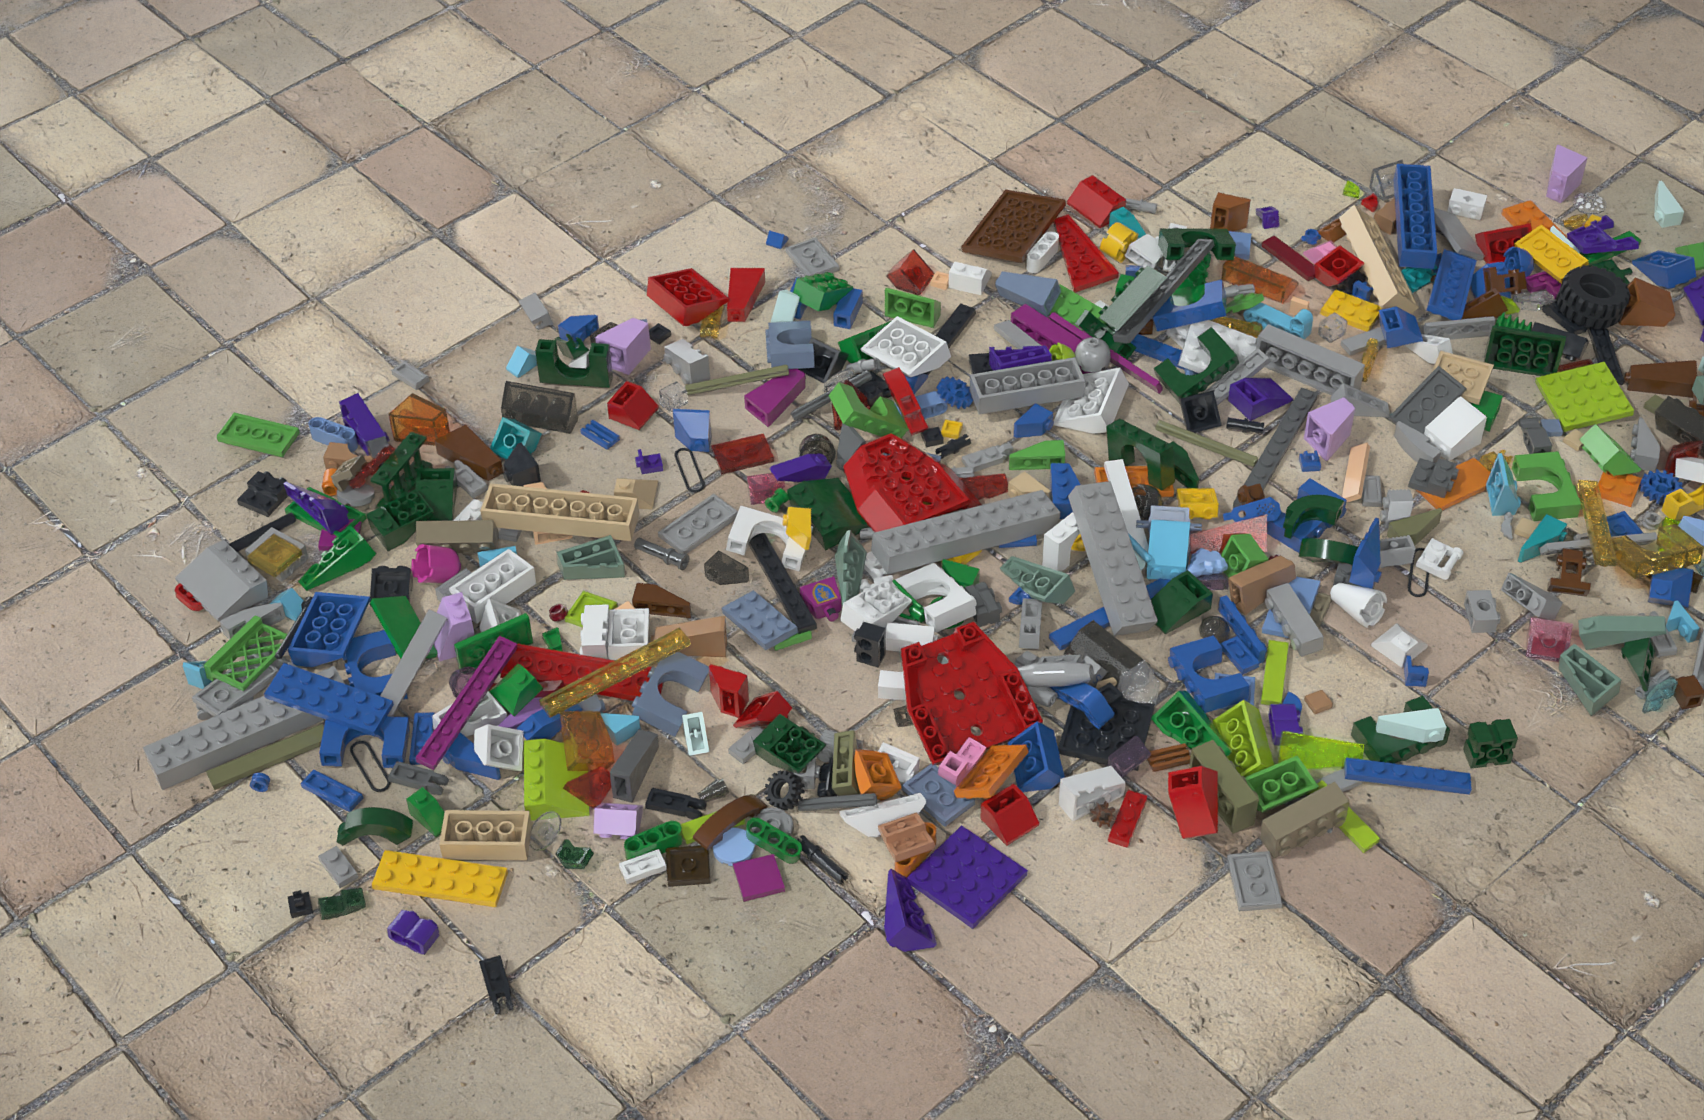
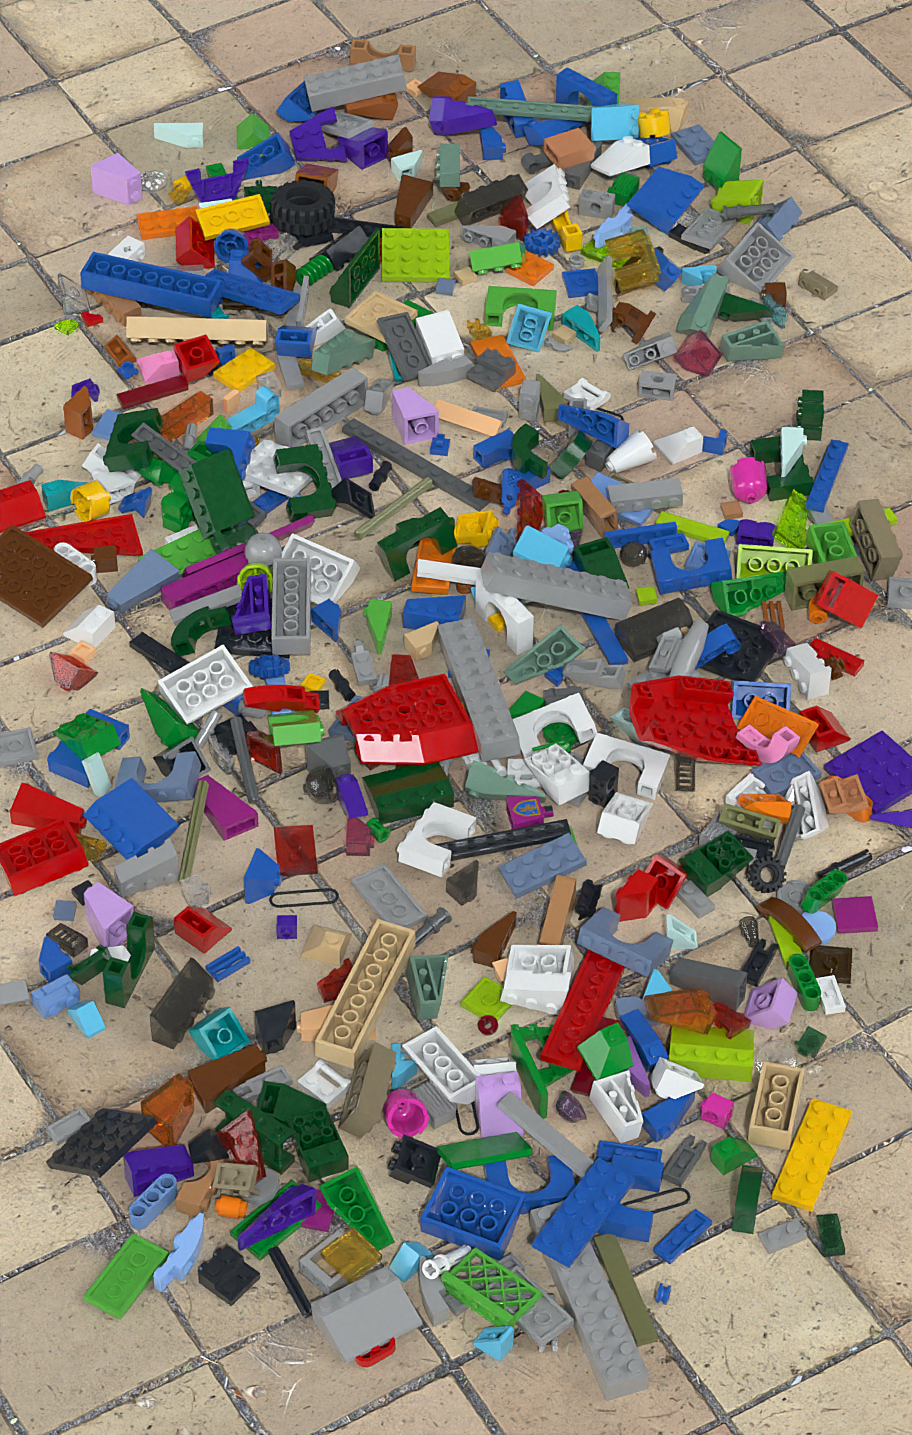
camera: 80 degrees left, 0 degrees up
(269, 615) = (444, 1262): none -> white pin
(285, 464) = (186, 1251): none -> light blue slope
(288, 639) = (426, 1235): black piece -> none
(300, 904) = (824, 1270): black tile -> none
(378, 385) = (101, 1142): none -> black plate
(413, 931) = (877, 1175): dark purple brick -> none
(466, 703) = (619, 1092): magenta plate -> none
(478, 793) = (717, 1110): none -> dark pink brick
(534, 331) = (55, 996): none -> medium blue brick
(614, 672) = (611, 968): clear yellow plate -> none
(733, 658) = (588, 899): none -> black hinge
(734, 336) = (131, 820): none -> blue slope
(798, 525) = (442, 805): yellow slope -> none
(840, 672) = (624, 818): none -> white slope
(912, 308) = (127, 676): bright green slope -> none
(981, 334) = (195, 625): none -> dark green arch
(1055, 268) = (105, 559): none -> reddish brown brick
(1139, 684) = (697, 608): clear plate -> none
(1159, 649) = (646, 595): none -> lime tile
(1357, 702) = (749, 480): none -> dark pink cylinder
(1394, 359) = (342, 352): none -> sand green wedge
(1534, 436) = (458, 298): dark grey piece -> none
(1596, 523) = (596, 283): clear yellow plate -> none

